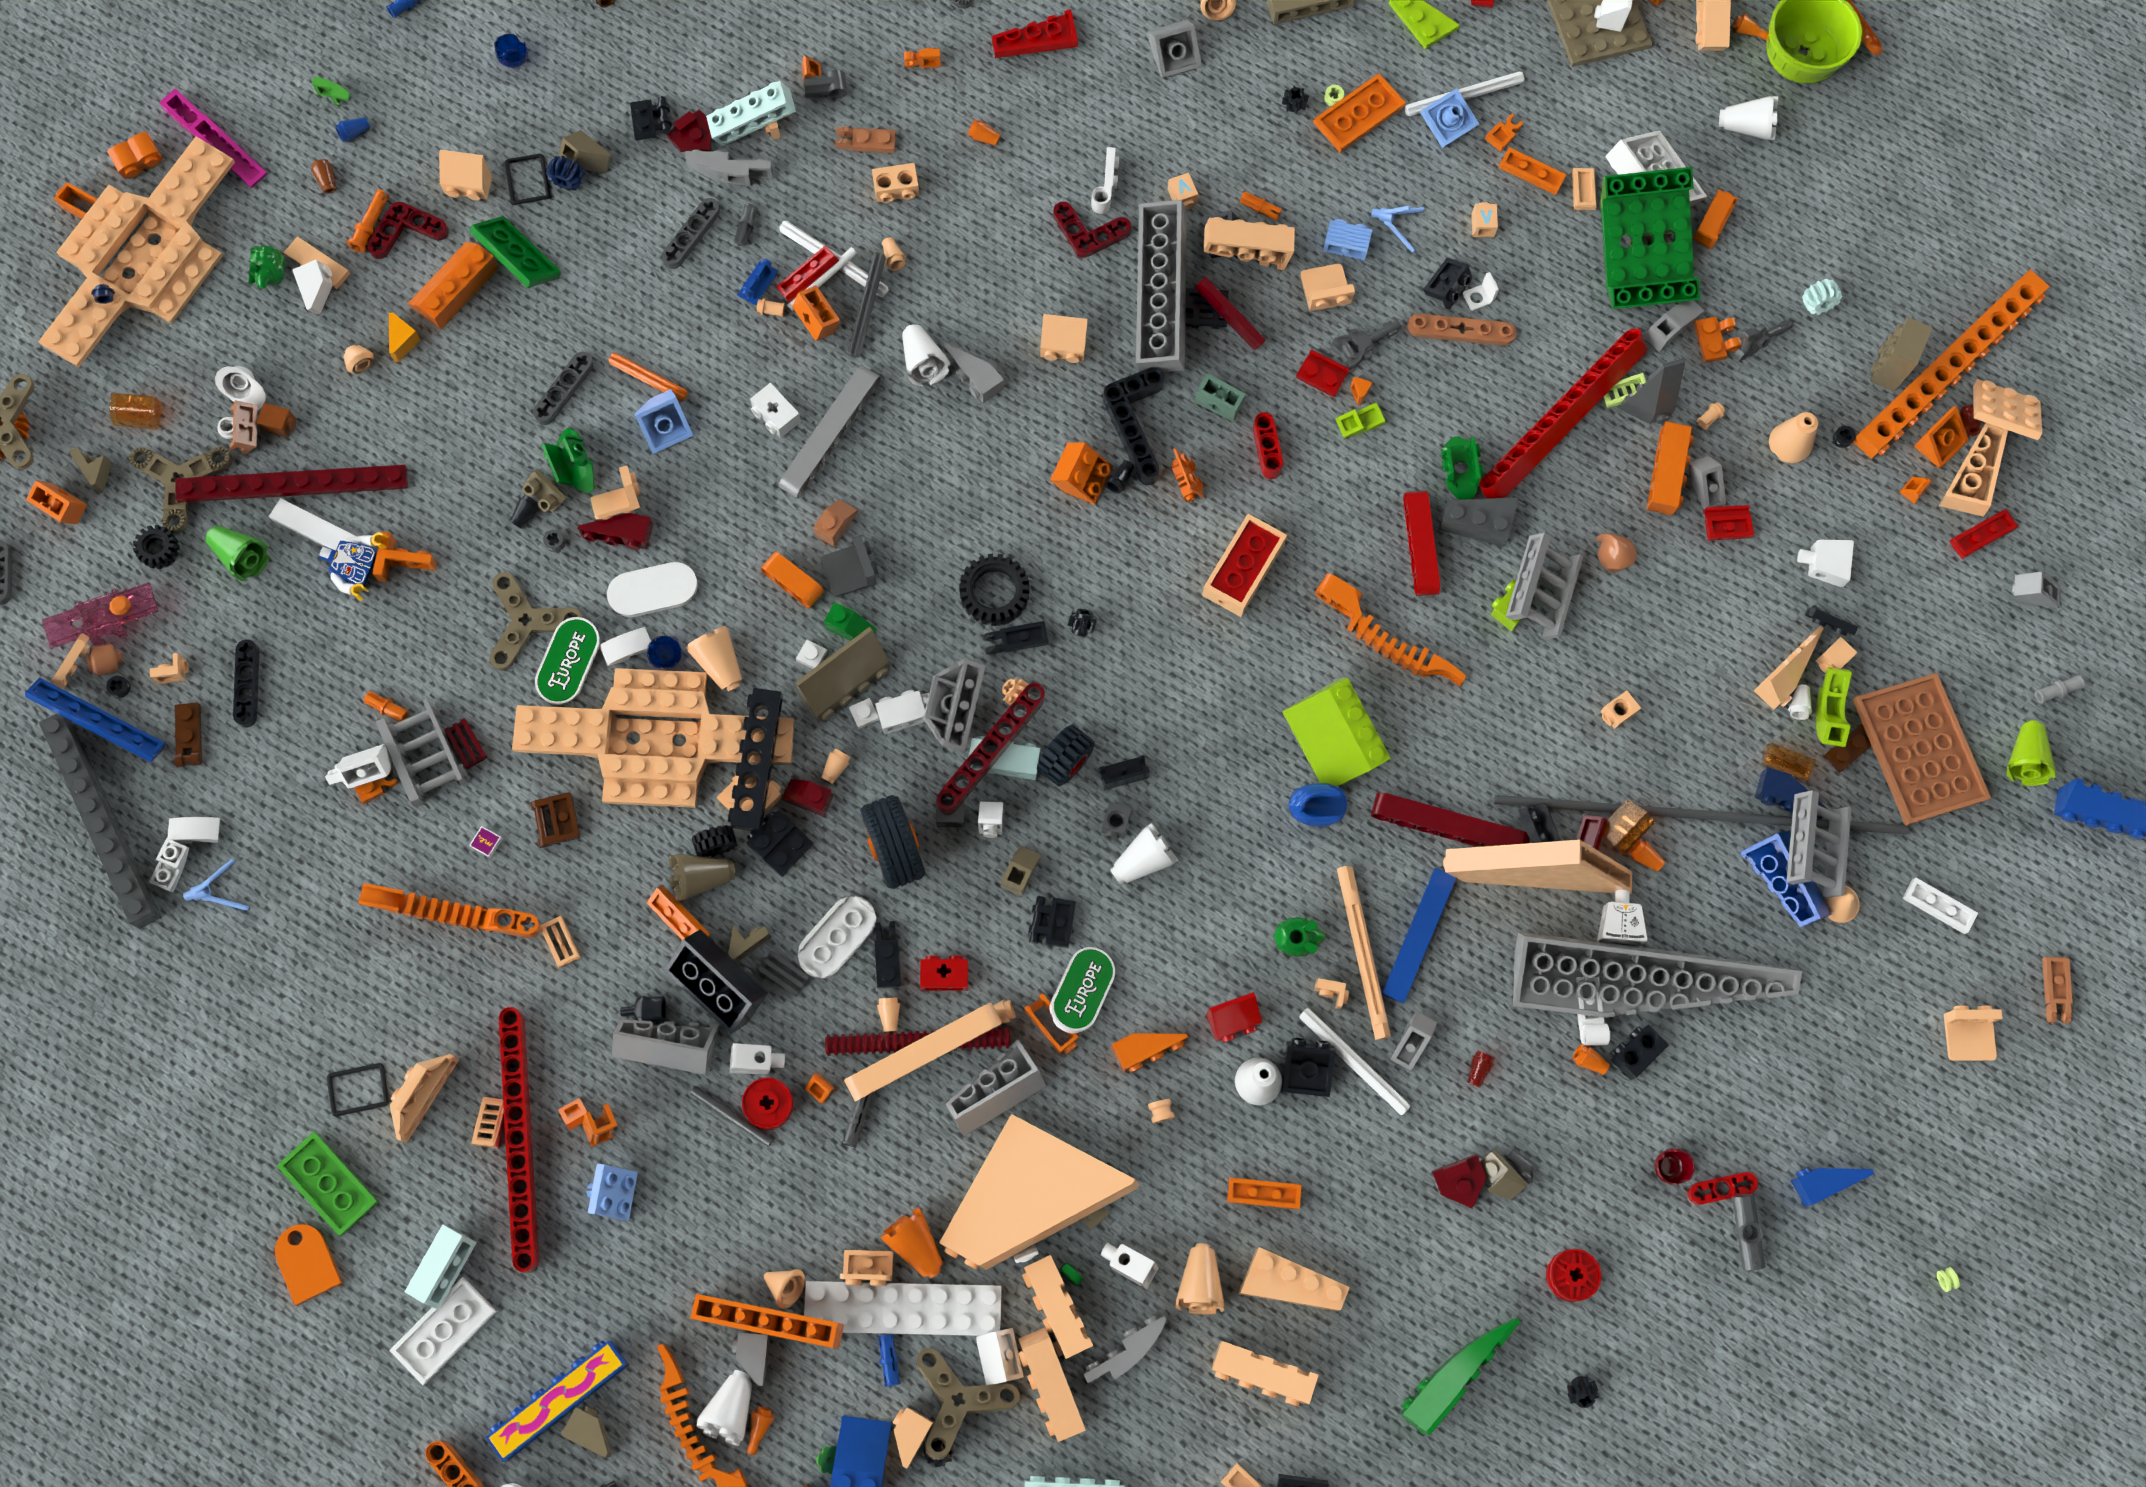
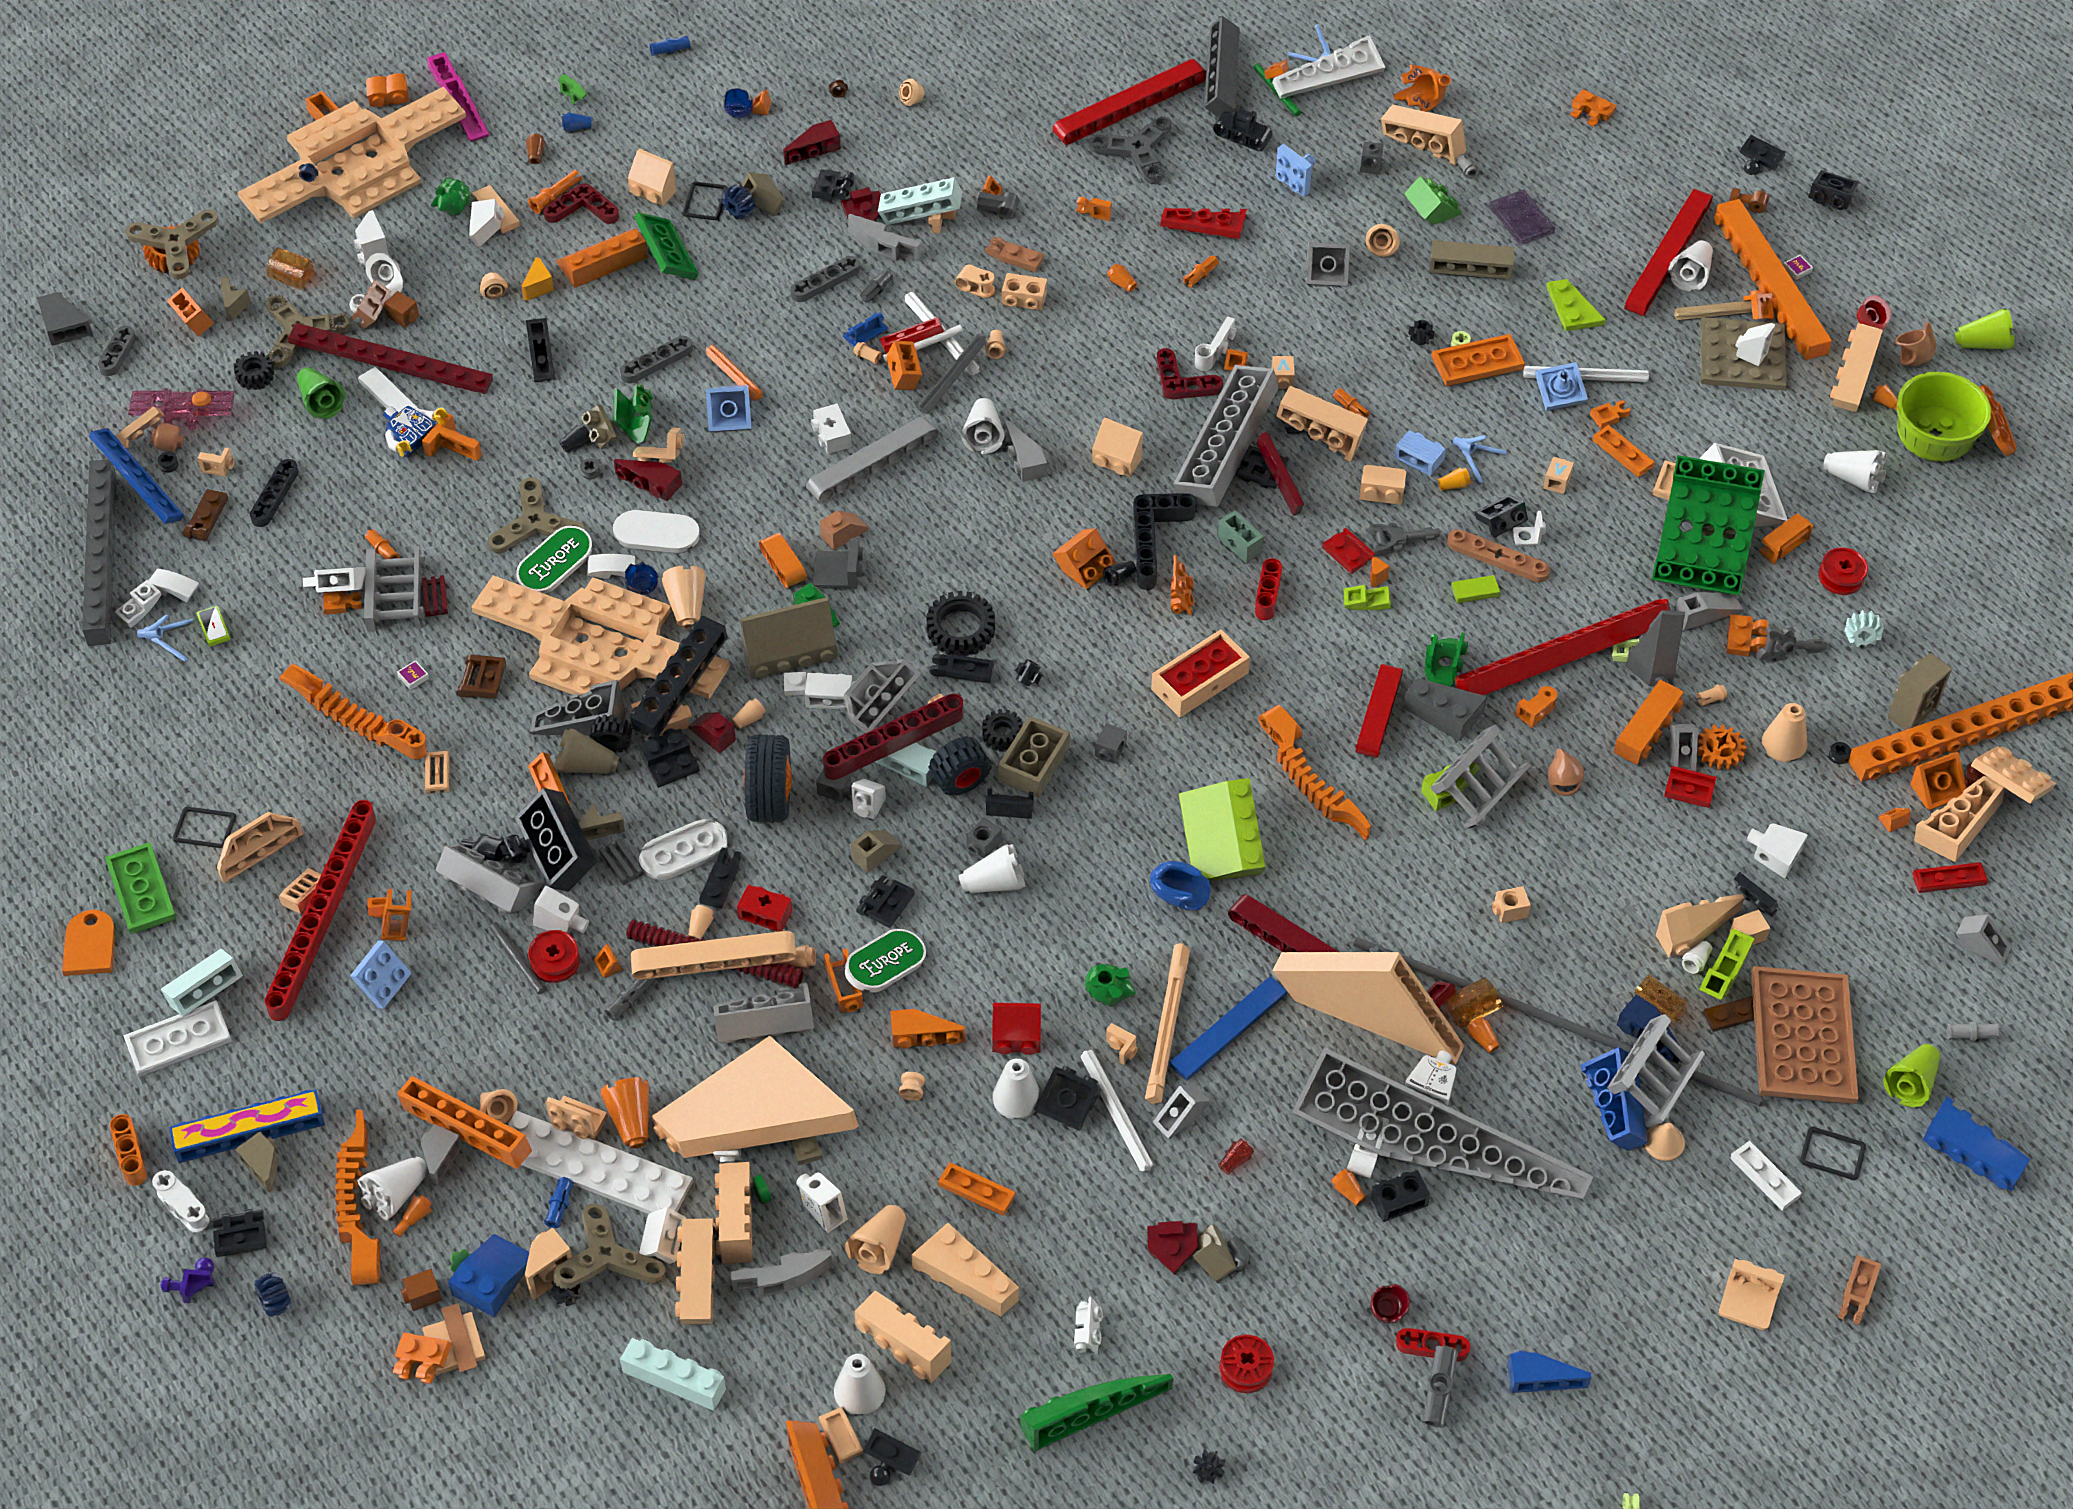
camera: 25 degrees right, 20 degrees down
(207, 352) = (369, 238): none -> white slope
(258, 861) = (213, 626): none -> slope
(442, 421) = (540, 349): none -> black slope
(534, 41) = (761, 103): none -> orange slope
(610, 71) = (815, 141): none -> dark red slope
(673, 826) = (580, 710): none -> dark grey wedge
(677, 1002) = (514, 849): none -> black gear
(841, 185) = (974, 279): none -> light nougat piece
(1056, 98) = (1201, 271): none -> orange axle
(1083, 681) = (1000, 720): none -> black tyre
(1127, 715) = (1034, 756): none -> dark tan brick
(1132, 193) = (1234, 358): none -> orange slope
(1190, 672) = (1110, 743): none -> dark grey brick
(1234, 1435) = (859, 1386): none -> white cone
(1391, 258) = (1455, 480): none -> light orange cone
(1419, 1284) = (1089, 1316): none -> white hinge
(1455, 374) = (1475, 589): none -> lime tile
(1565, 481) = (1537, 707): none -> orange leg
(1749, 467) = (1721, 747): none -> orange gear
(1778, 237) = (1843, 571): none -> red wheel
(1985, 839) = (1827, 1169): none -> black piece

